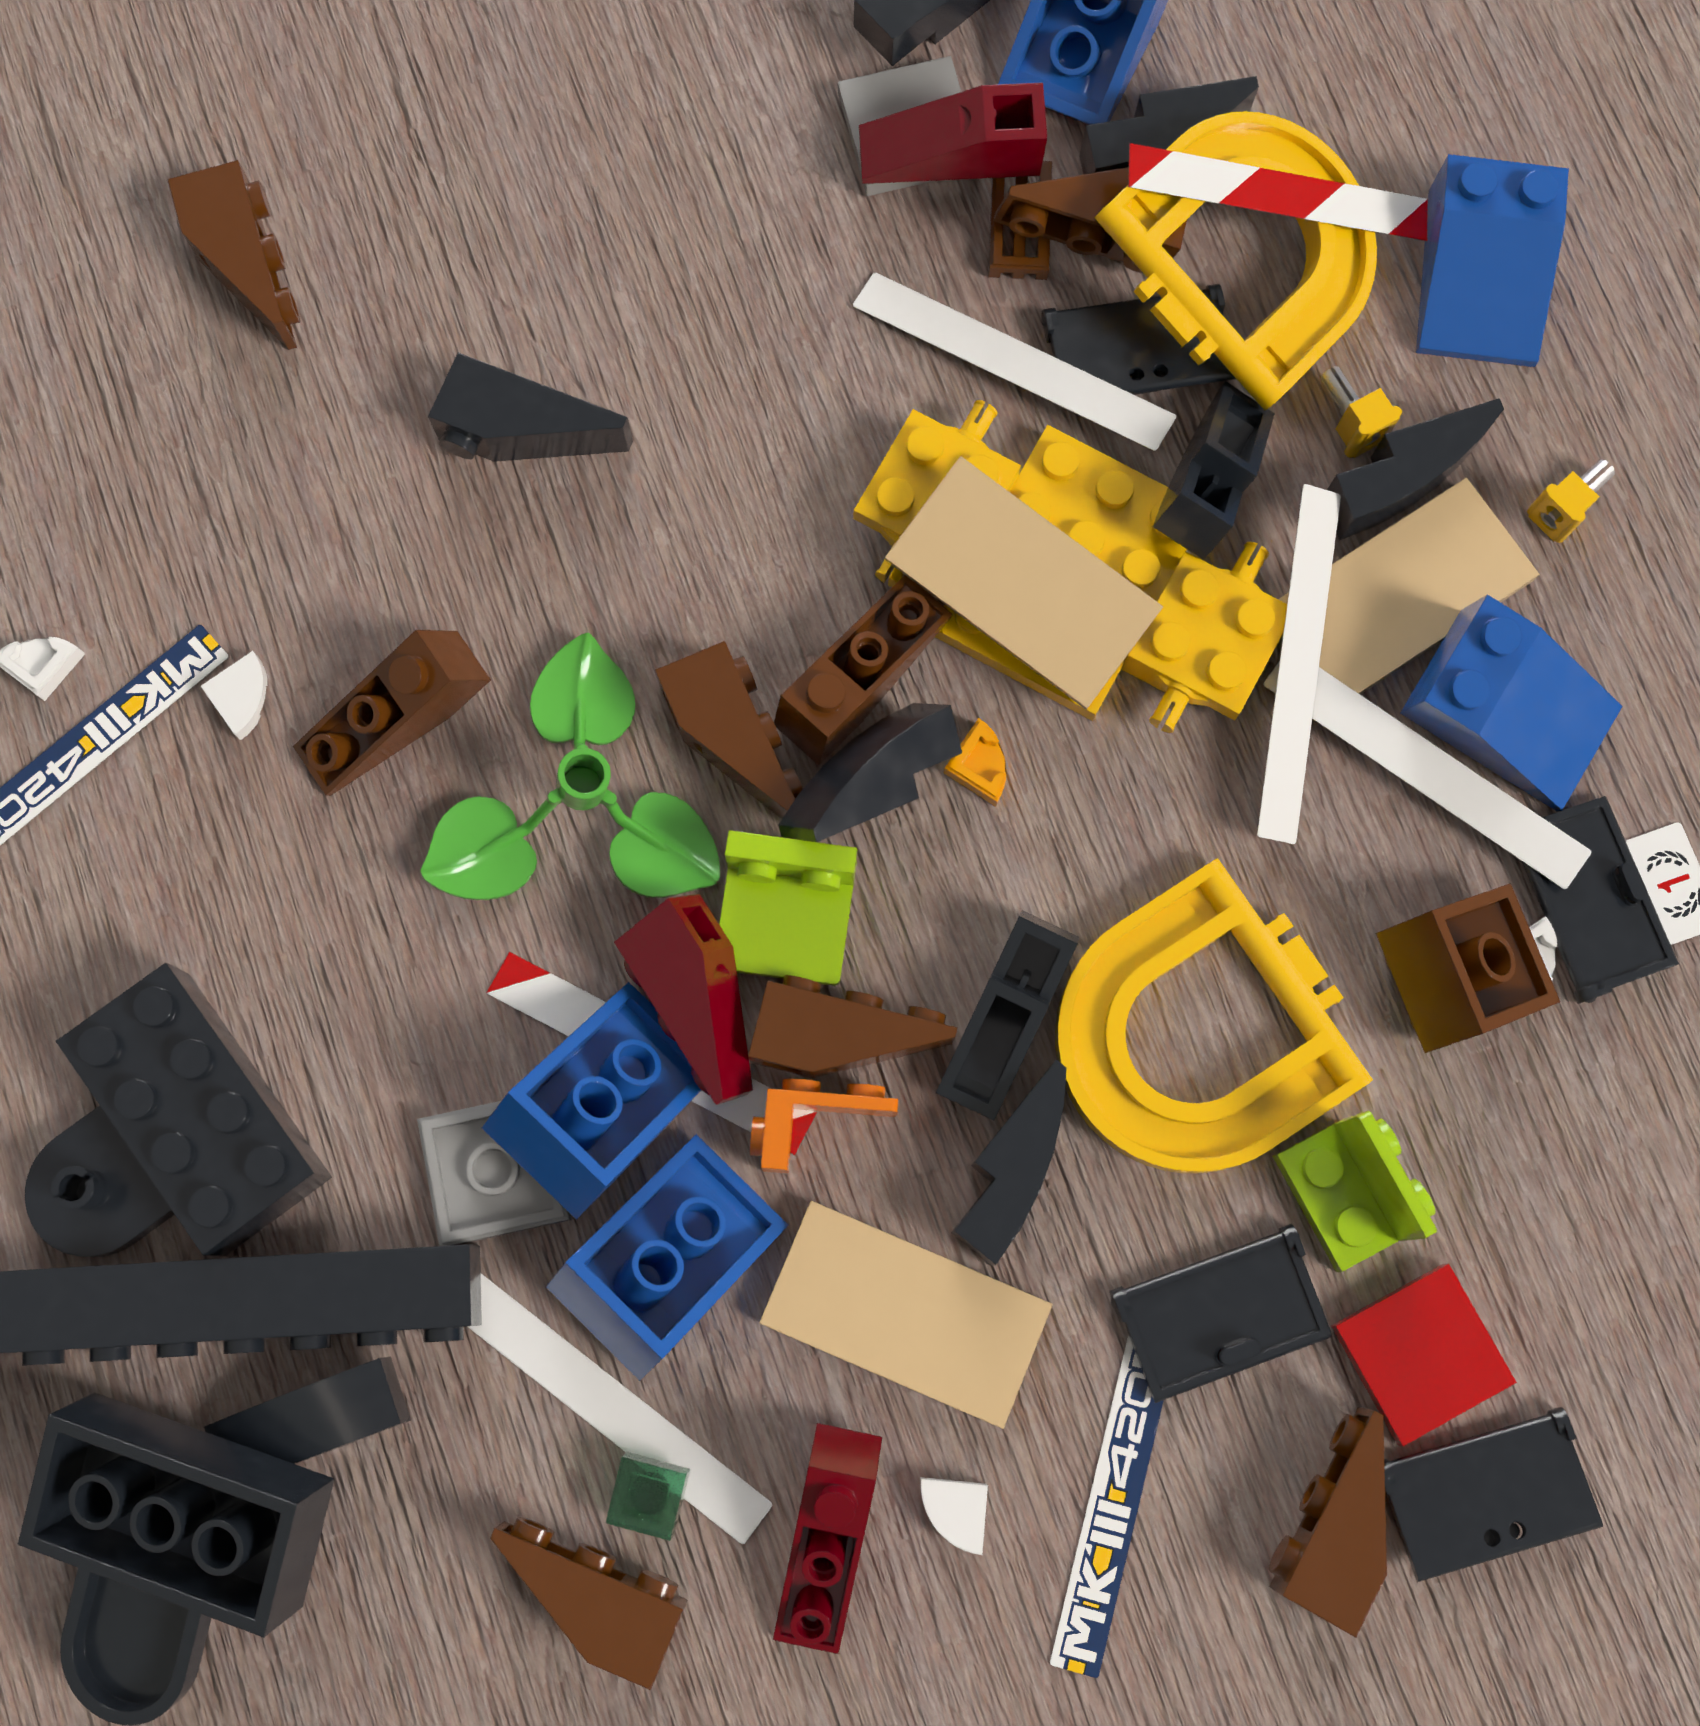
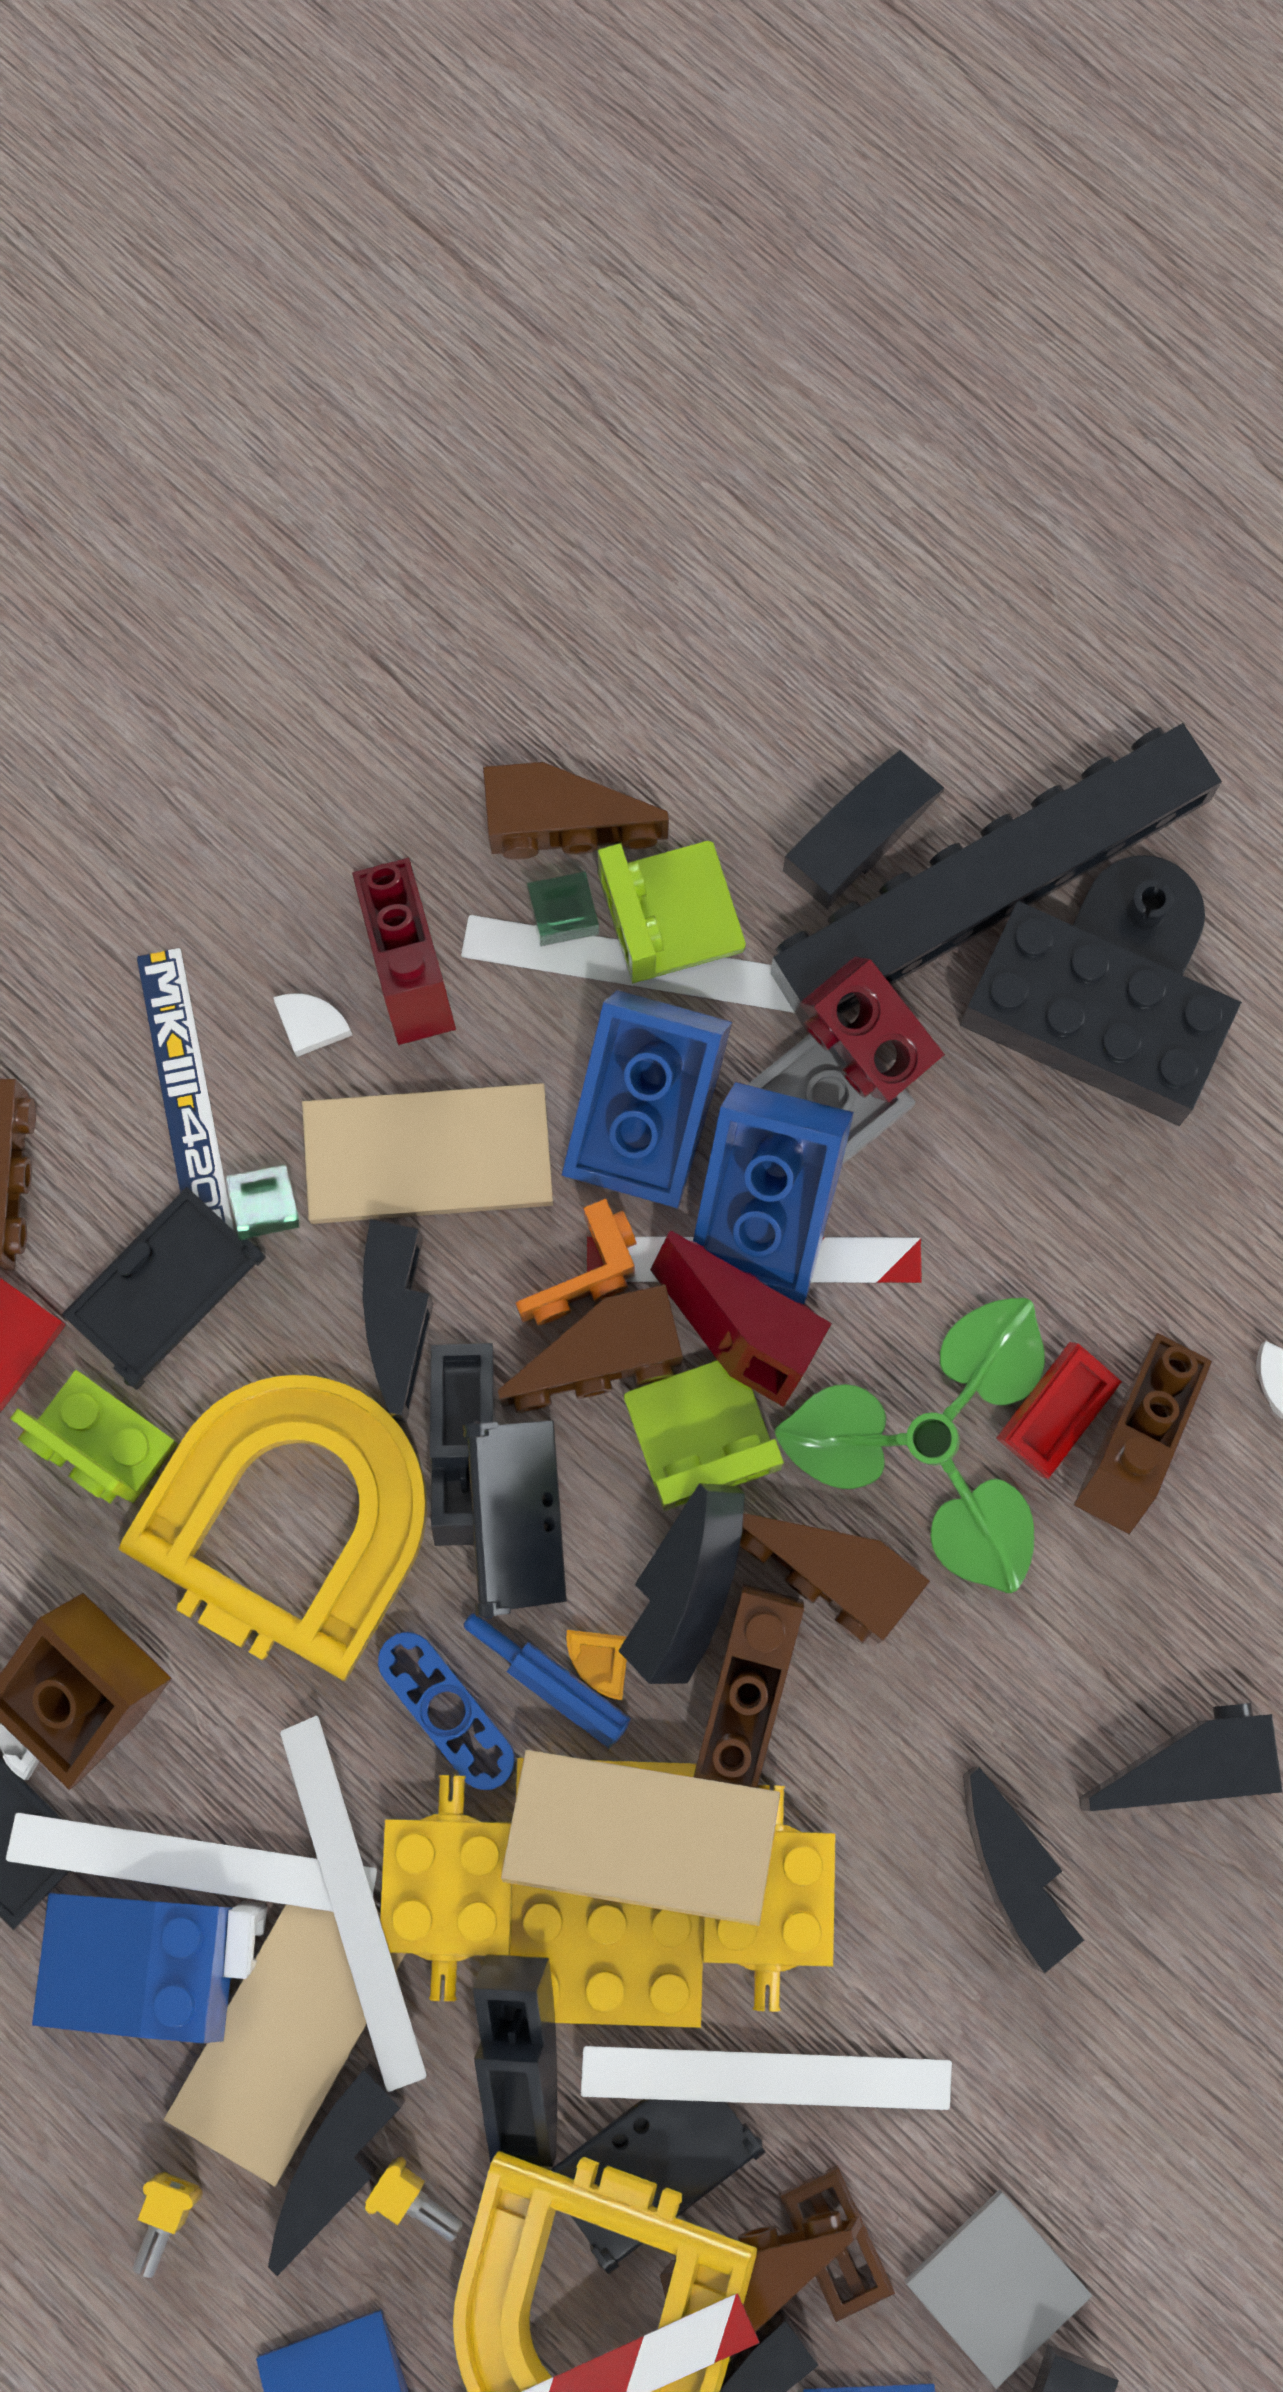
camera: 155 degrees right, 0 degrees up
(163, 1541) = (913, 684): black brick -> none
(408, 1200) = (880, 1019): none -> dark red brick
(453, 770) = (1059, 1410): none -> red tile
(542, 1438) = (670, 909): none -> lime bracket
(716, 408) = (1016, 1872): none -> black slope
(959, 137) = (938, 2278): dark red slope -> none
(989, 938) = (514, 1554): none -> black door
(1031, 762) = (554, 1684): none -> blue axle
(1089, 1344) = (262, 1202): none -> plate
(1163, 828) = (406, 1683): none -> blue beam
(1410, 680) = (243, 1924): none -> white tile

